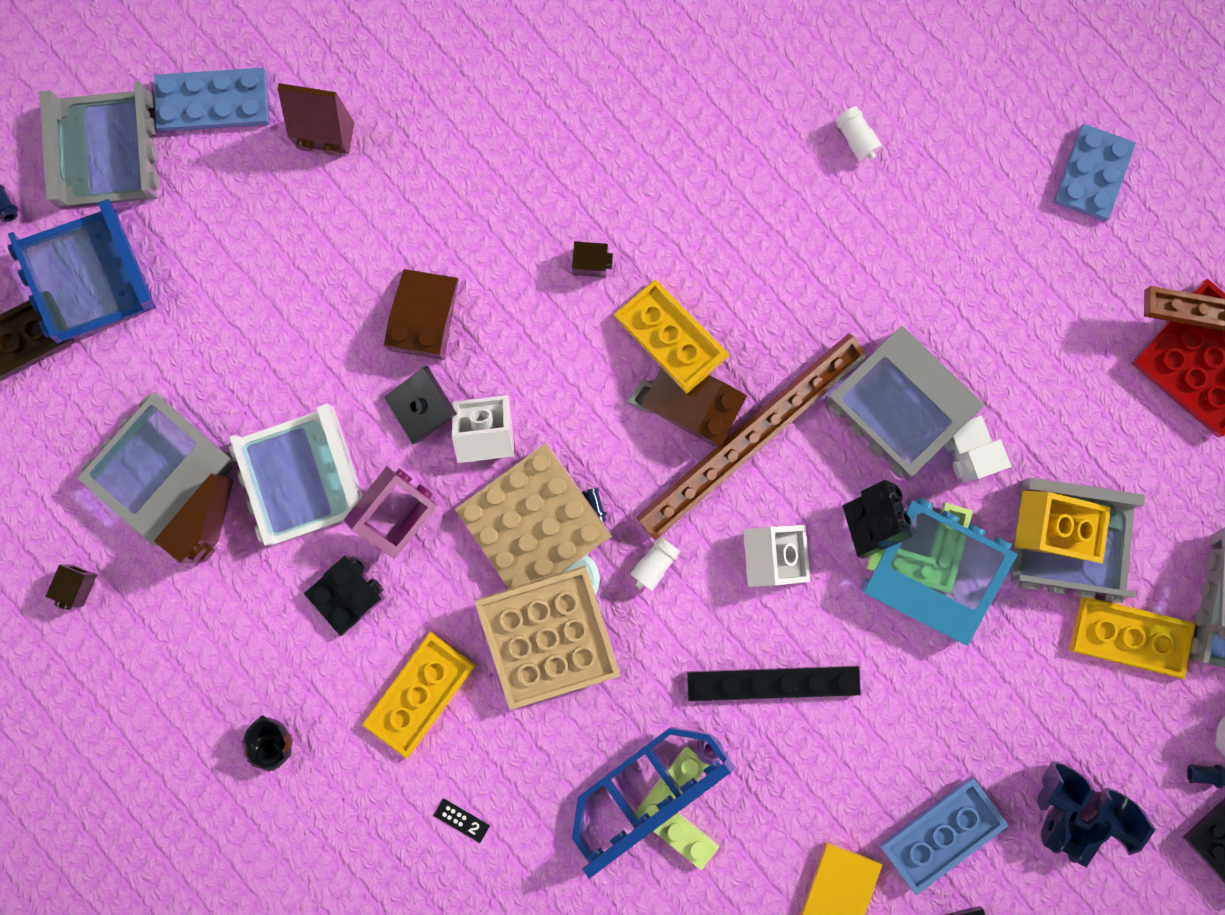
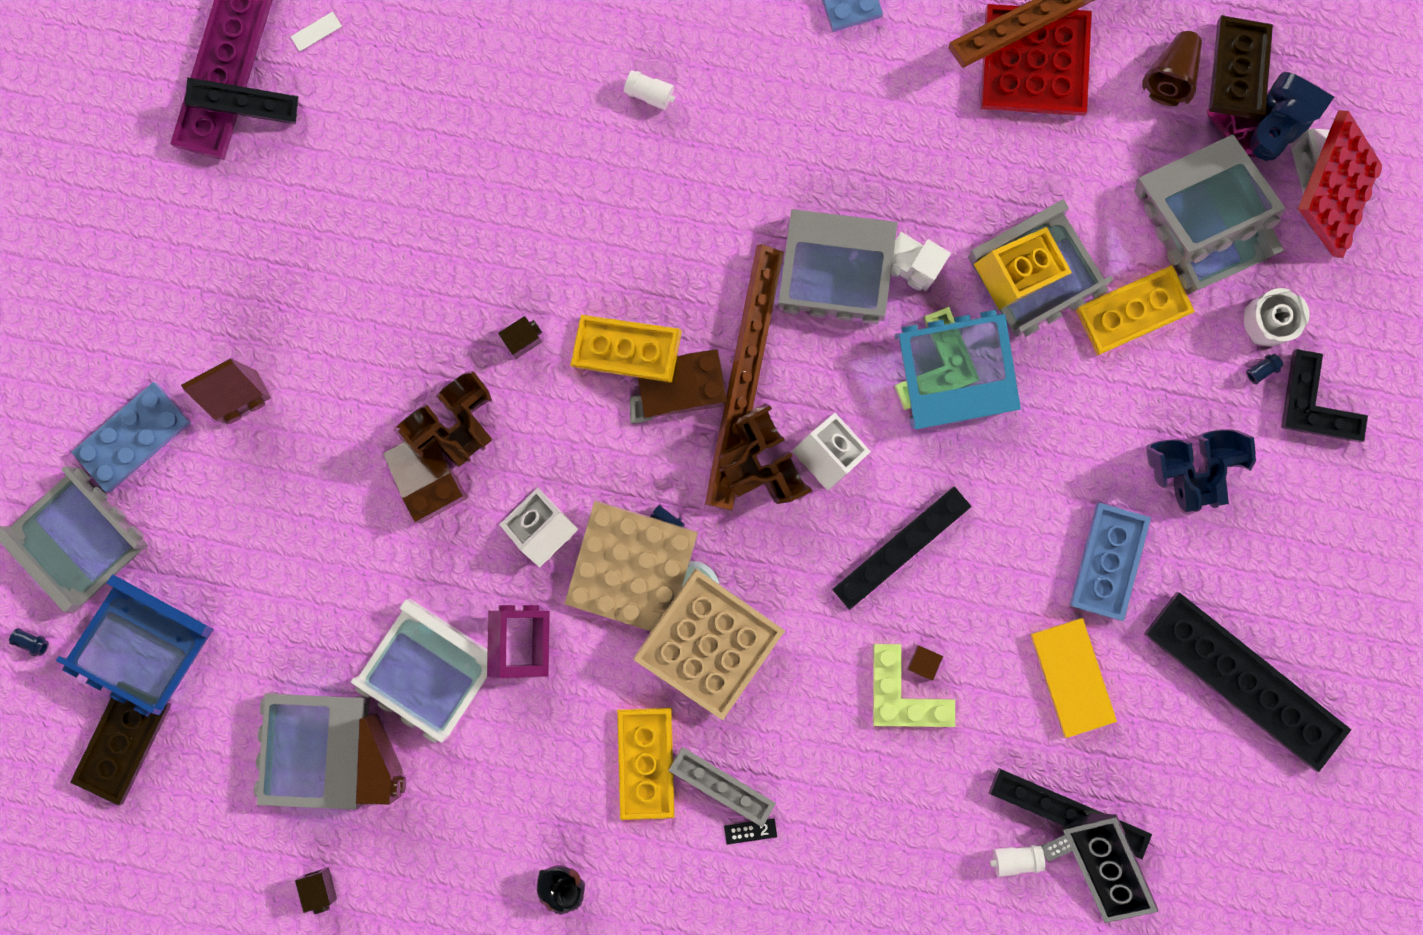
camera: 45 degrees left, 0 degrees up
(345, 594) = (531, 732): black plate -> none
(420, 405) = (477, 546): black plate -> none
(466, 765) = (722, 786): none -> light grey plate
(477, 307) = (461, 440): none -> reddish brown piece
(655, 563) = (746, 532): white piece -> none
(667, 808) = (894, 698): blue plate -> none
(692, 512) = (744, 468): none -> reddish brown piece
(702, 755) = (892, 626): medium lavender plate -> none
(719, 797) = (925, 662): none -> reddish brown tile
(877, 519) = (884, 367): black plate -> none

